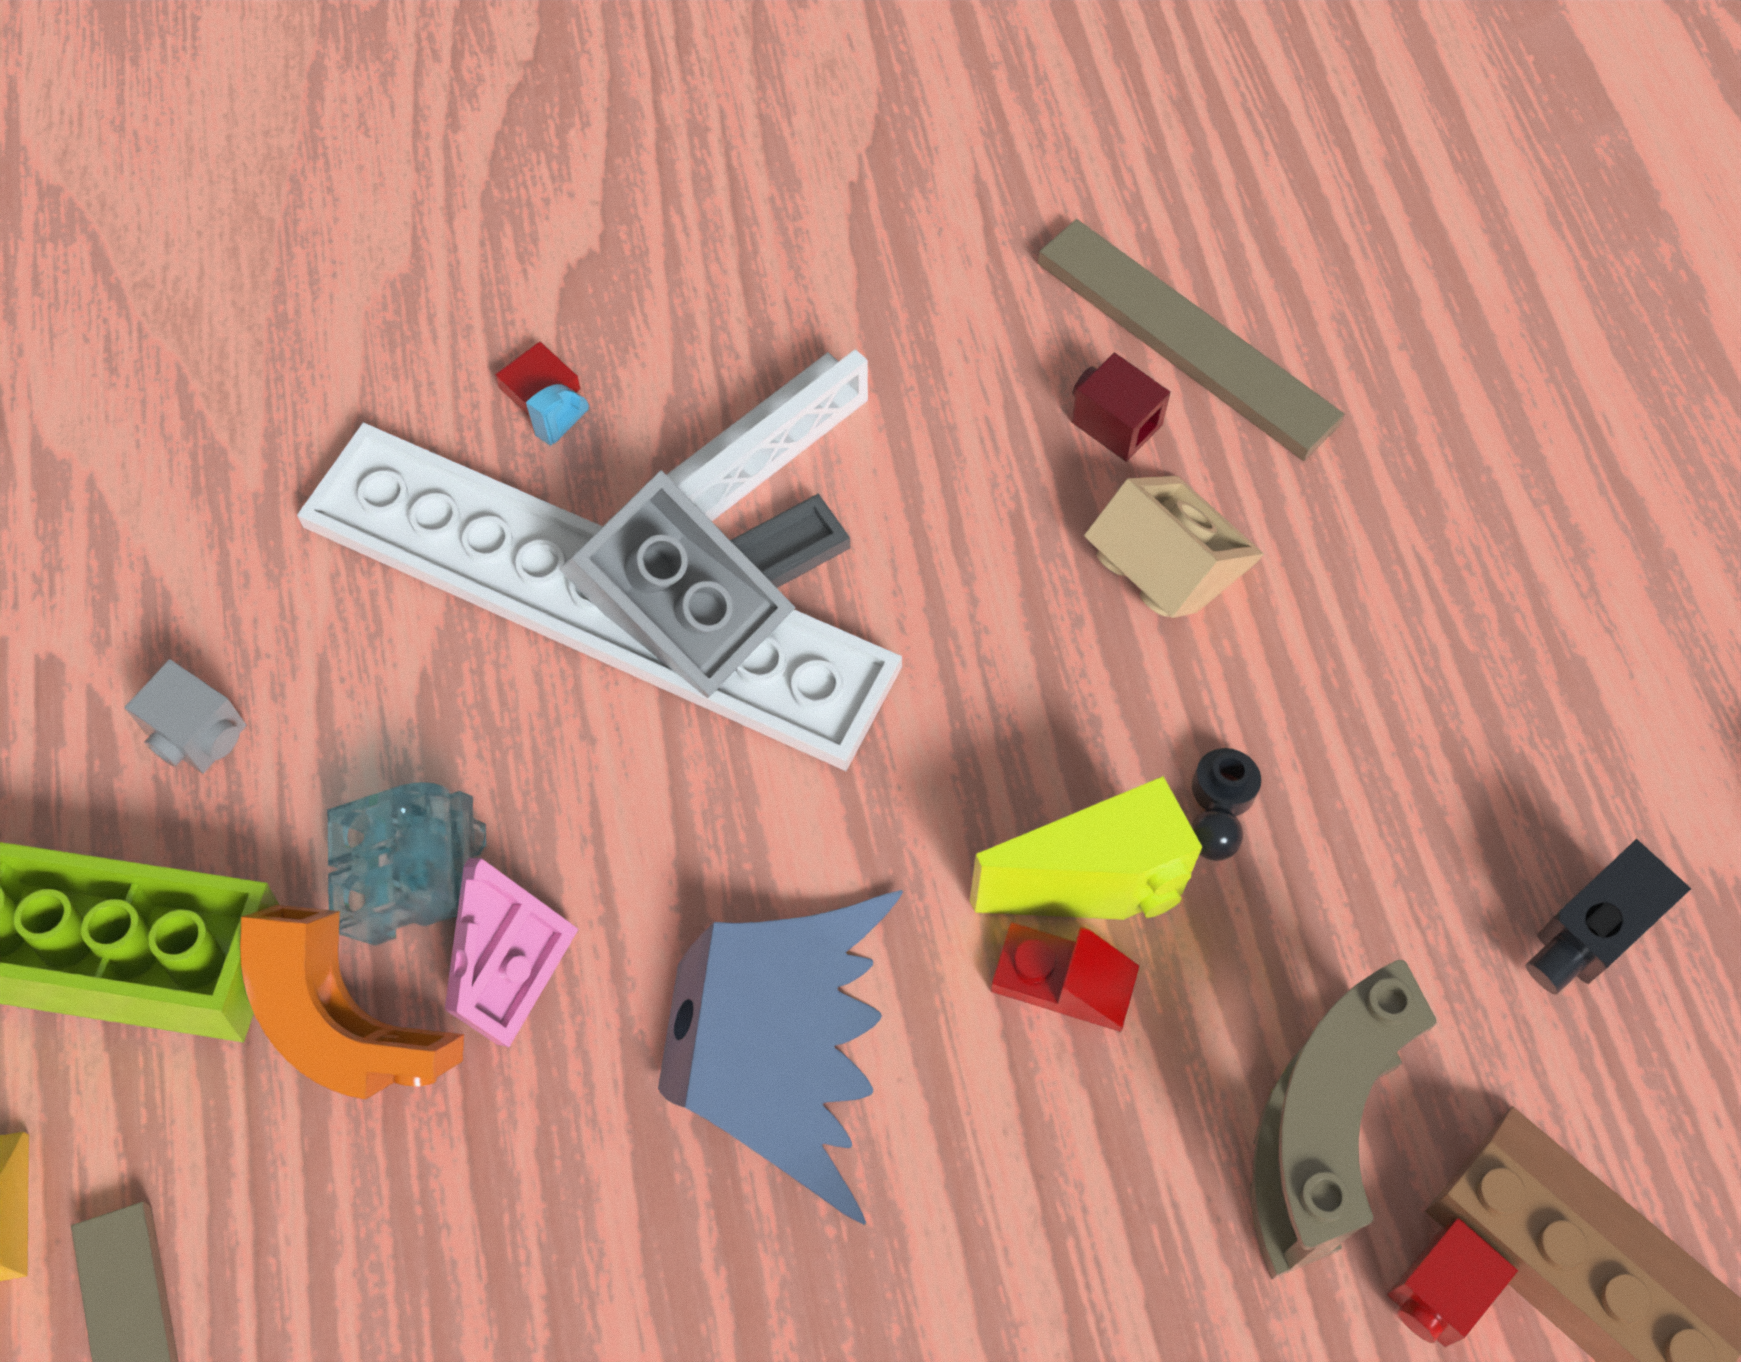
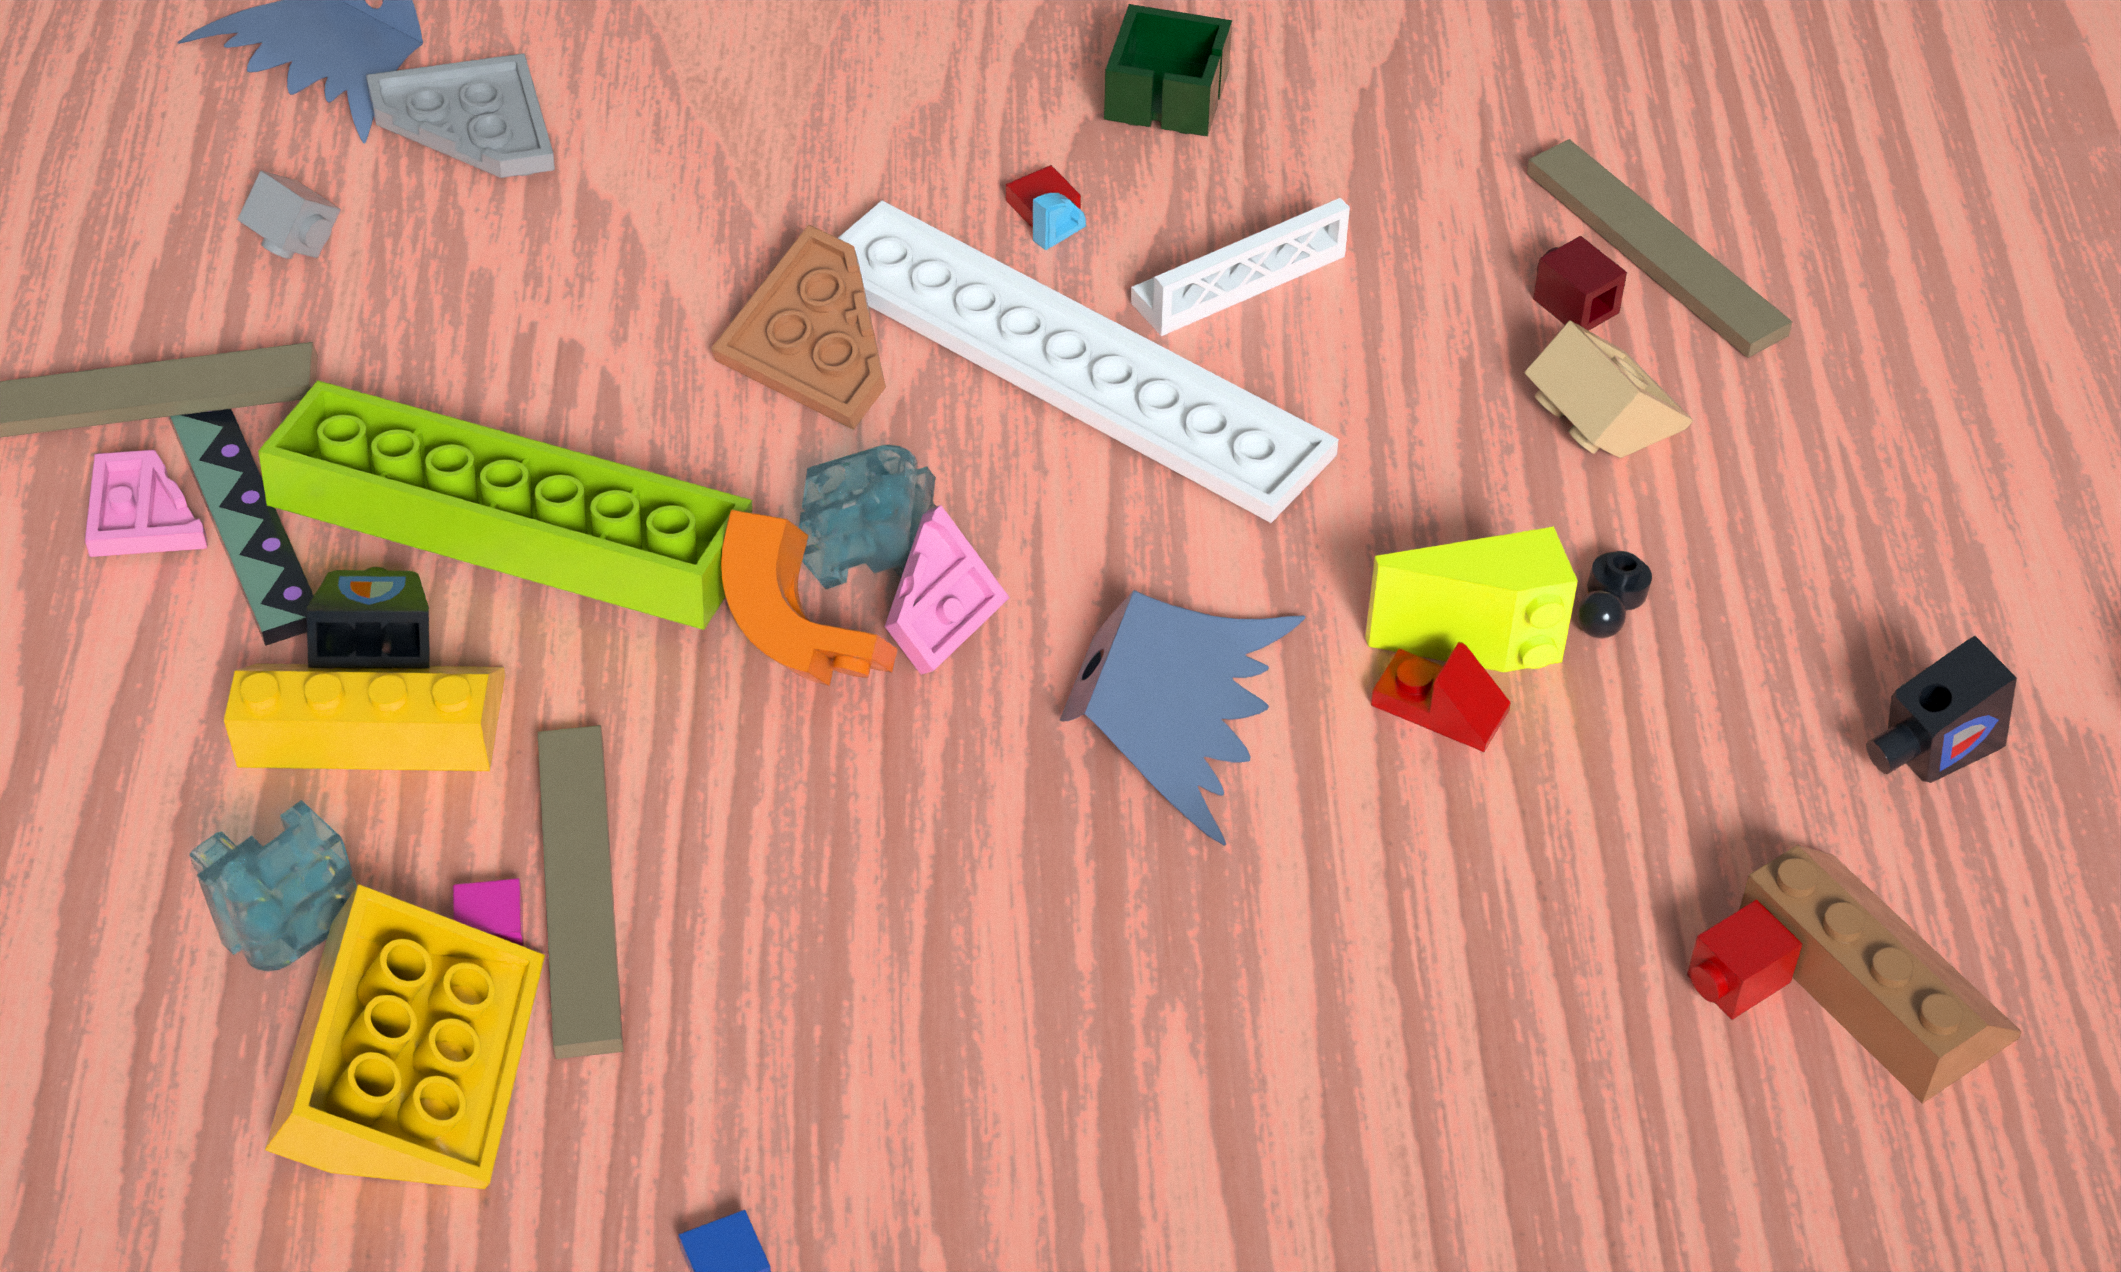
camera: 10 degrees right, 15 degrees down
(185, 718) = (693, 388): light grey brick -> none
(309, 611) = (810, 331): none -> nougat plate
(645, 204) = (1167, 69): none -> dark green piece
(678, 585) = (1143, 345): light grey slope -> none
(794, 541) = (1248, 350): dark grey tile -> none
(1307, 1140) = (1658, 783): dark tan fence -> none

